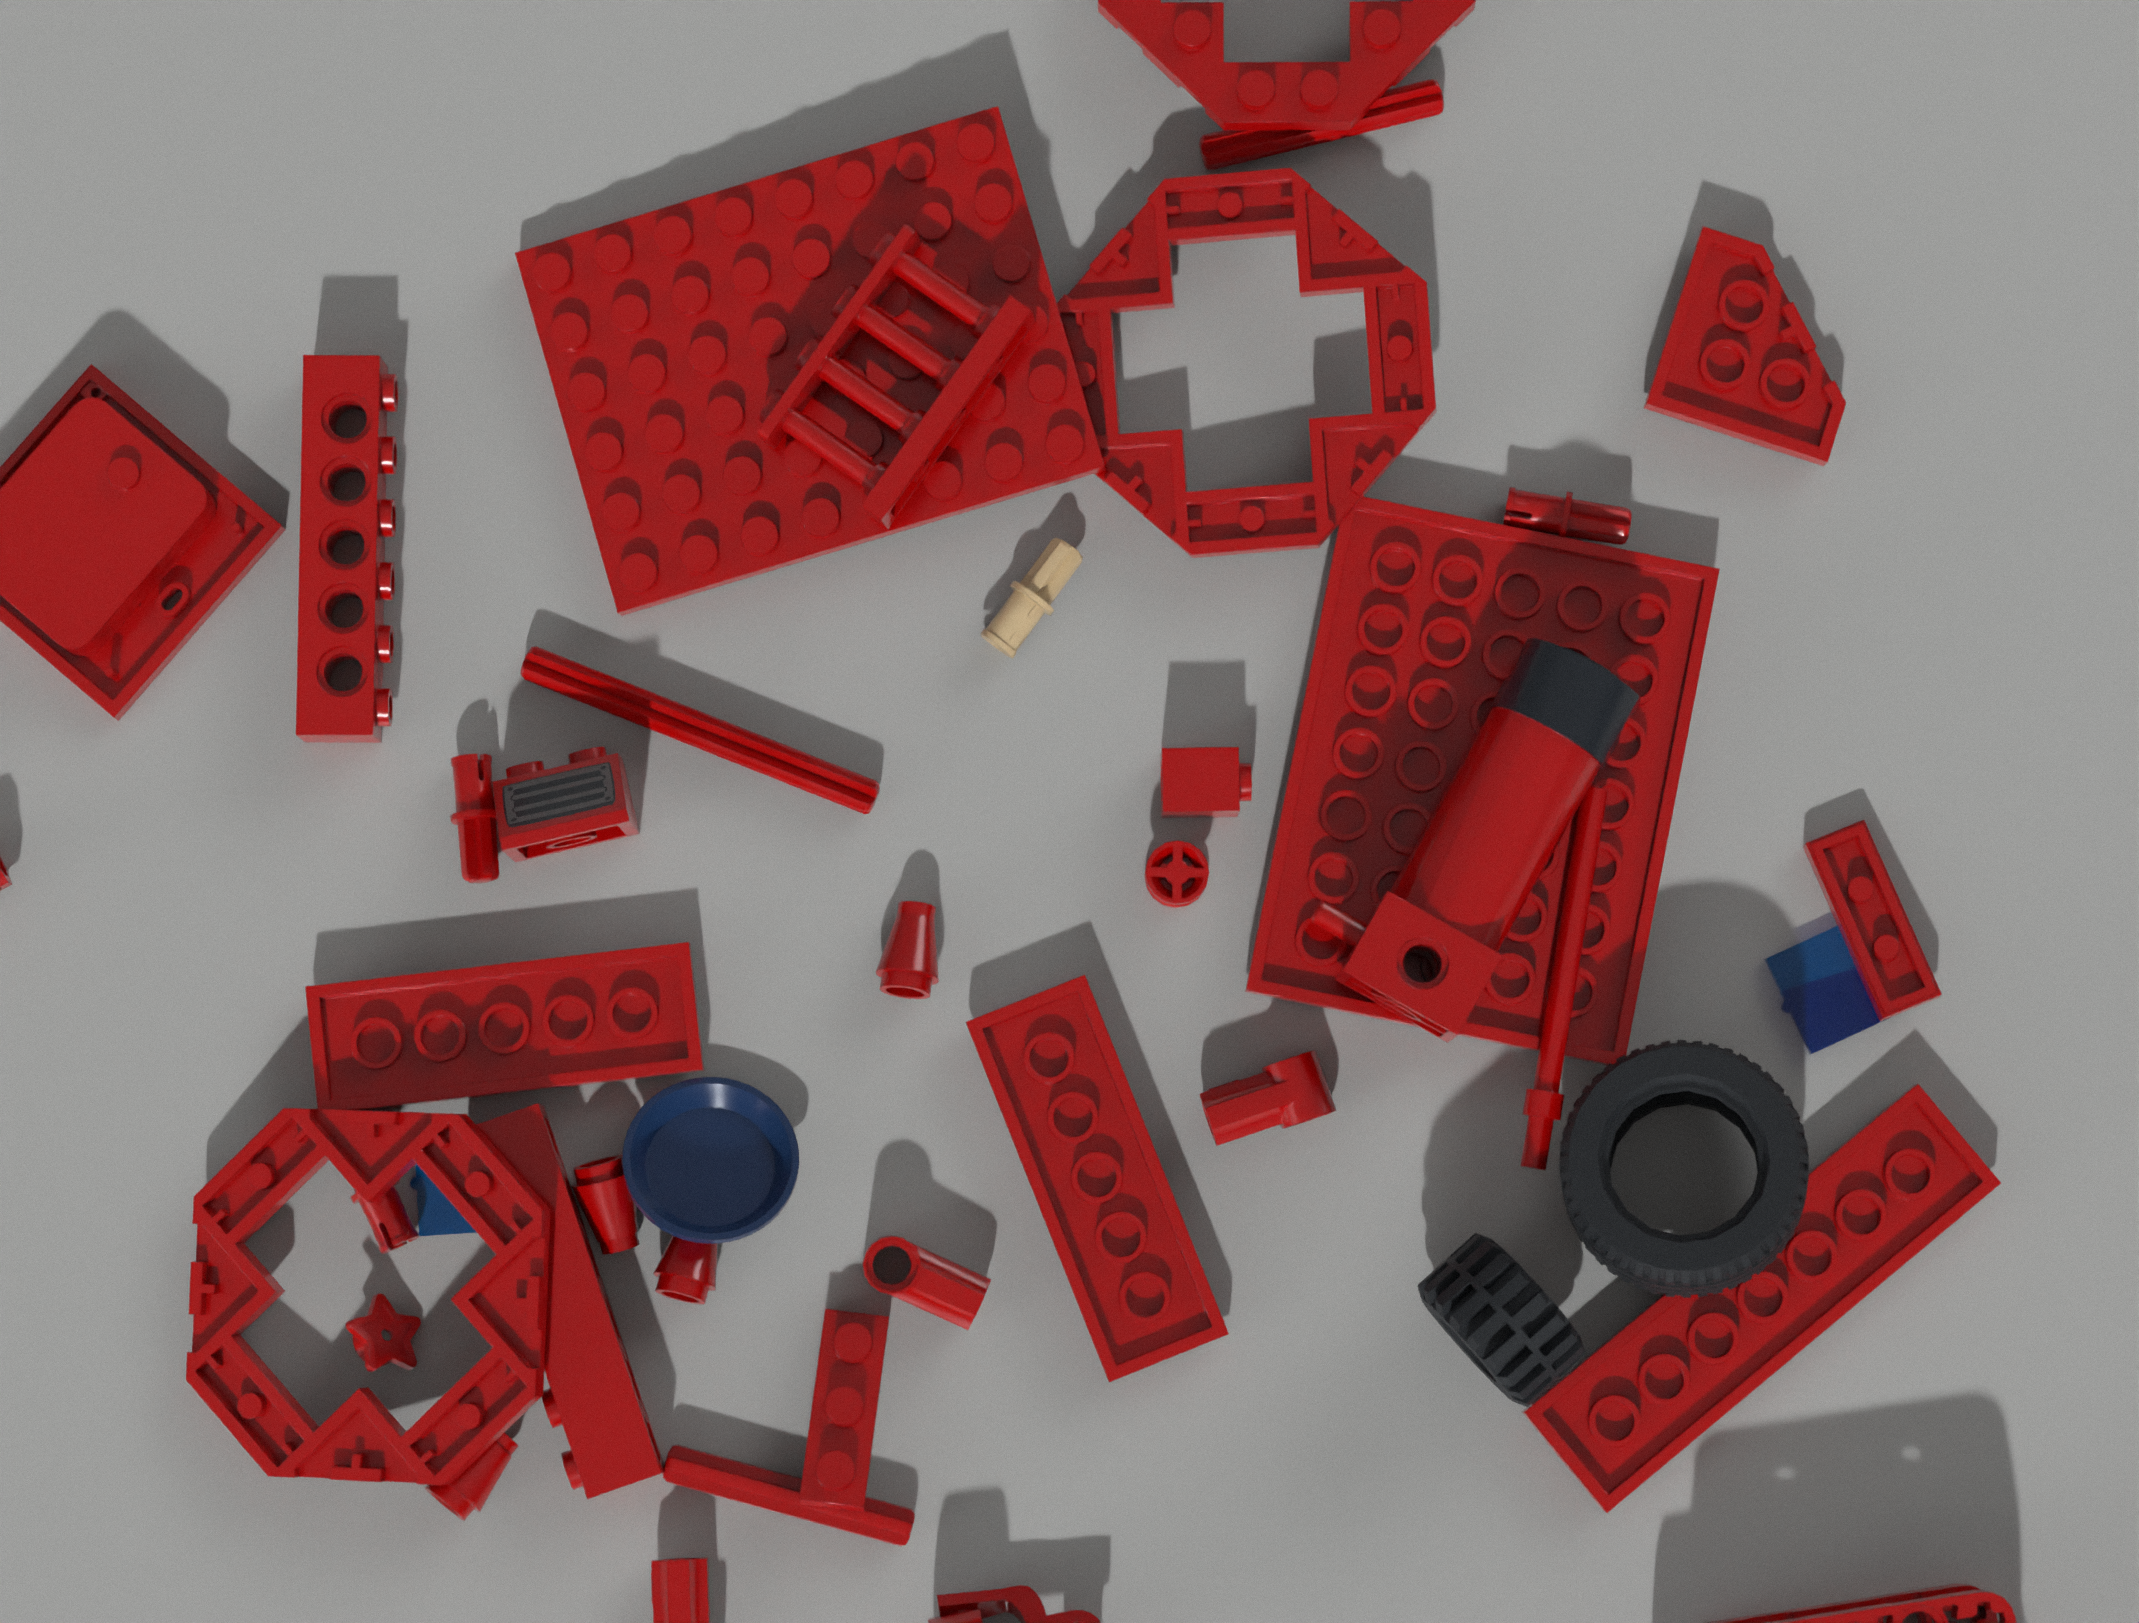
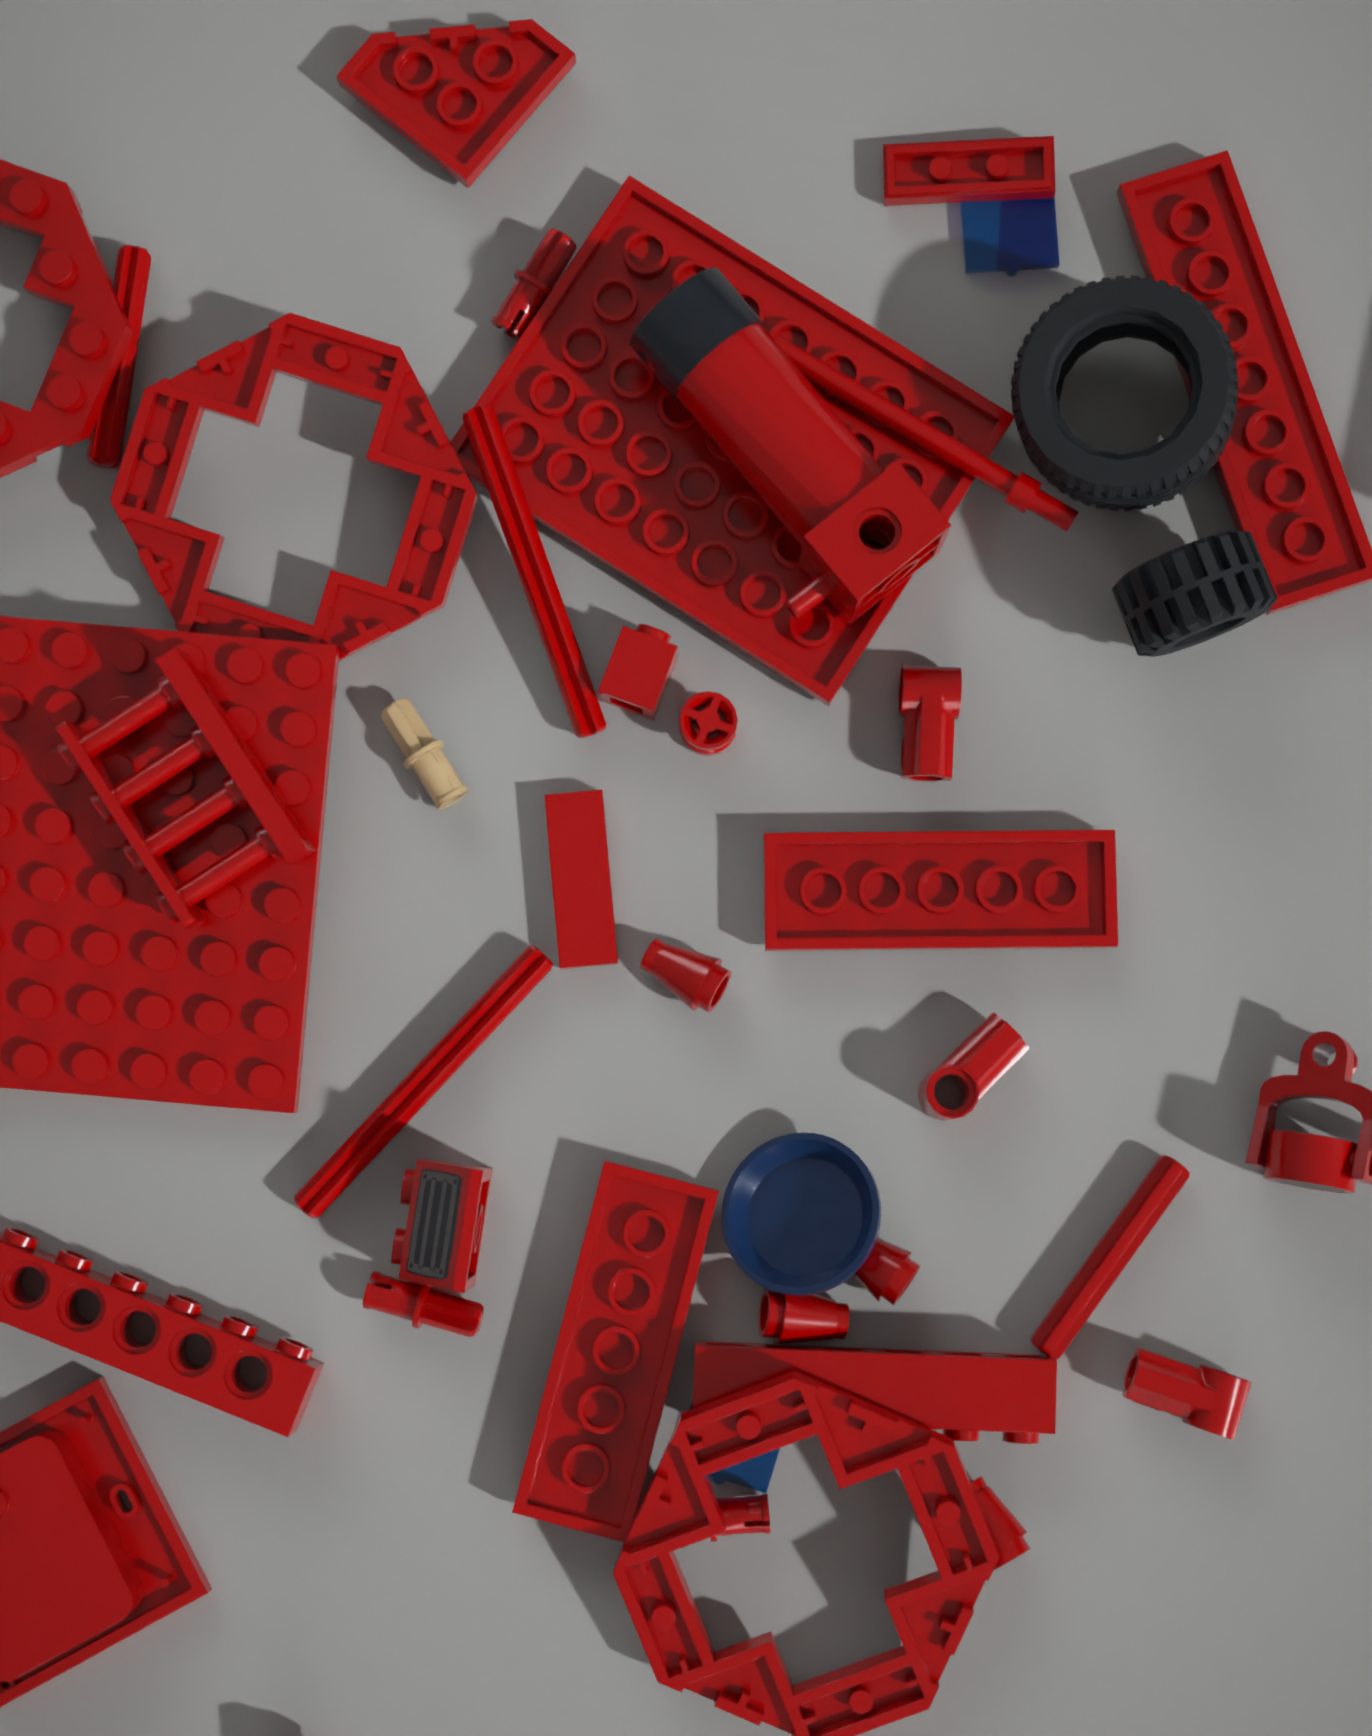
camera: 65 degrees left, 0 degrees up
(373, 1347) = (838, 1572): red plate -> none
(844, 1410) = (1057, 1181): red plate -> none
(966, 808) = (581, 879): none -> red tile
(1262, 635) = (534, 570): none -> red axle

